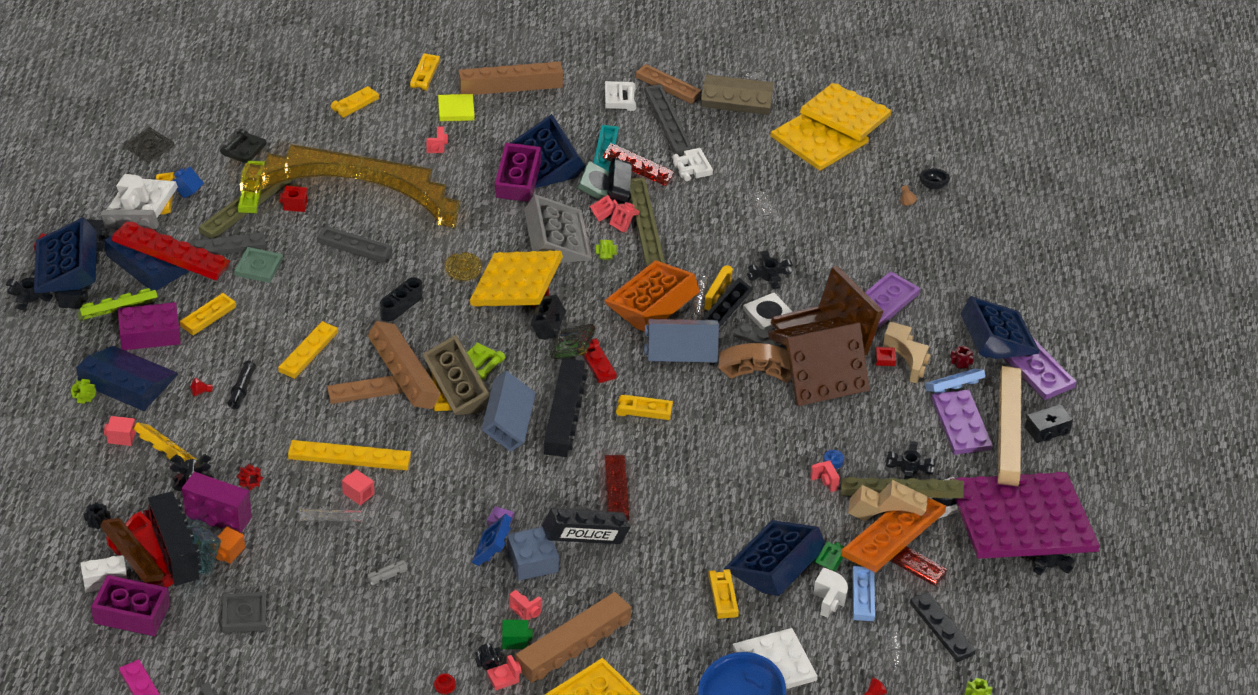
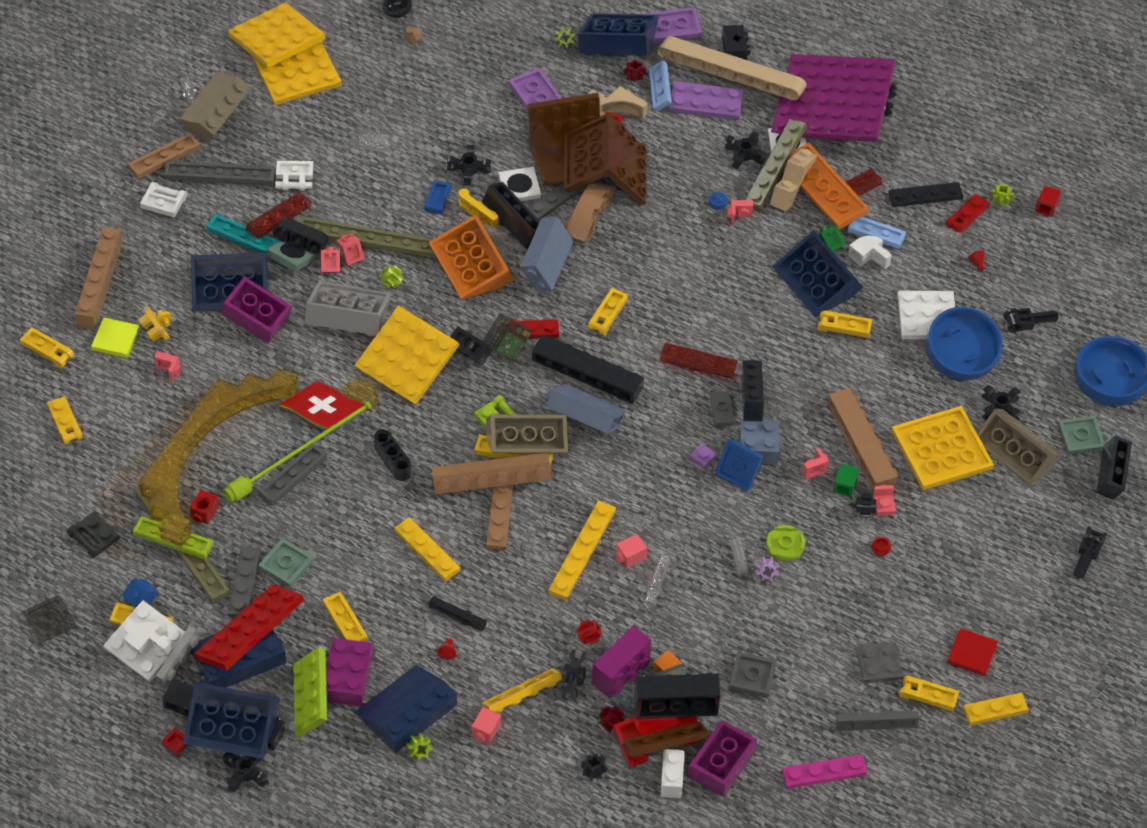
camera: 70 degrees left, 10 degrees up
(375, 593) = (767, 574): none -> lavender gear
(419, 612) = (785, 549): none -> lime tile
(434, 245) = (319, 406): none -> flag
(480, 123) = (151, 318): none -> yellow hips
(718, 260) = (437, 197): none -> blue tile
(935, 668) = (967, 213): none -> red plate
(970, 291) = (567, 33): none -> lime gear

